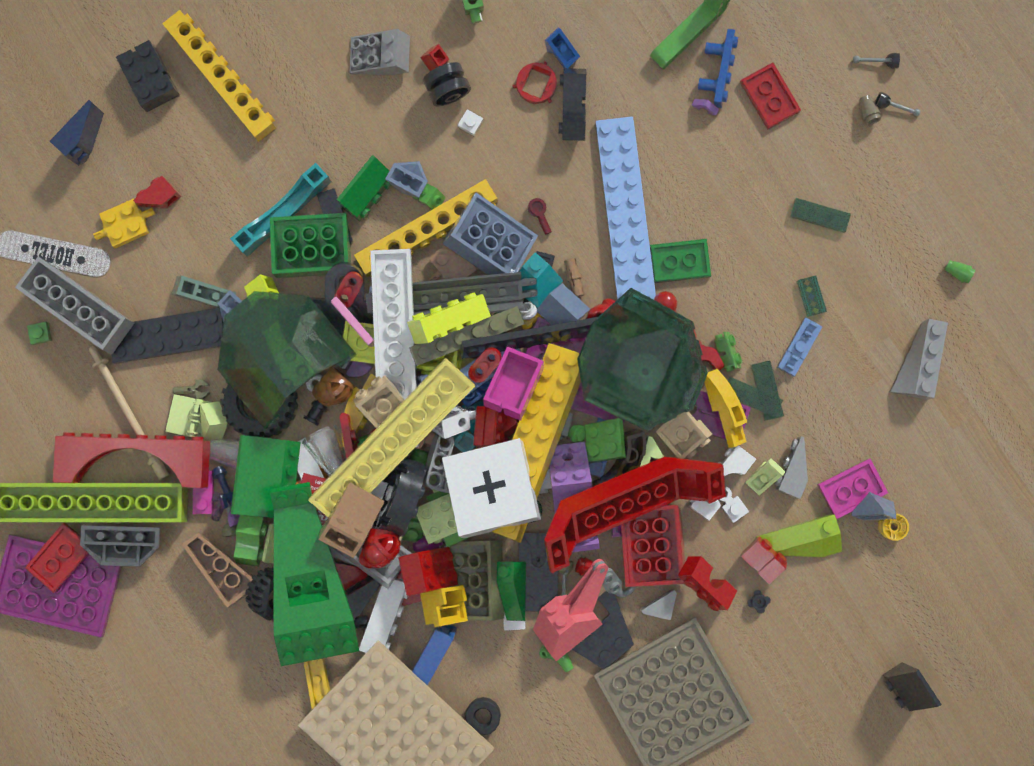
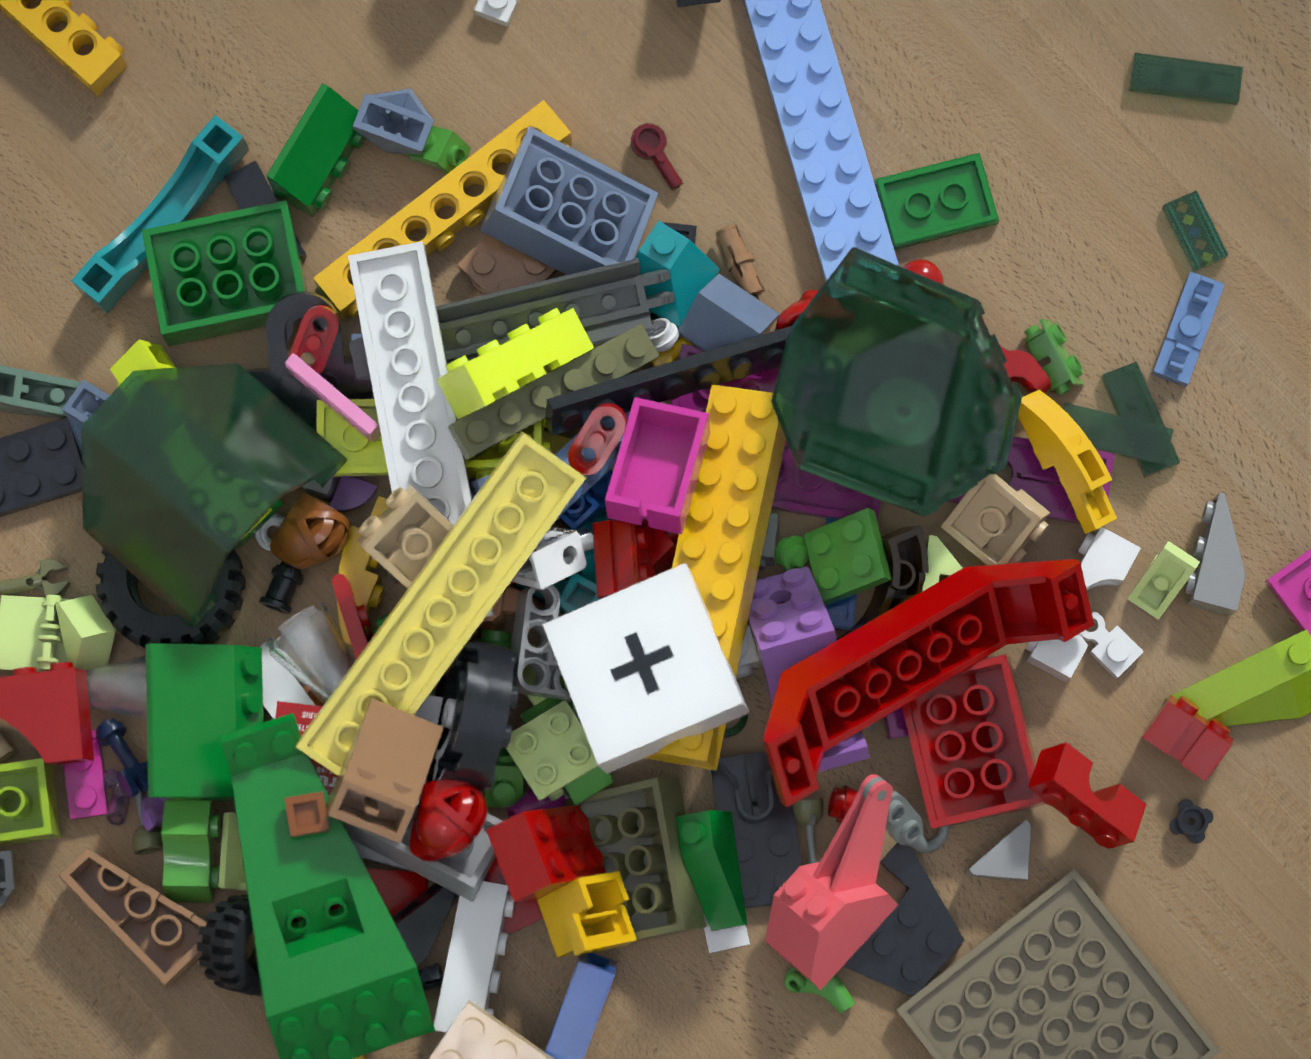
camera: 15 degrees left, 5 degrees down
(308, 535) = (307, 814): none -> dark orange plate

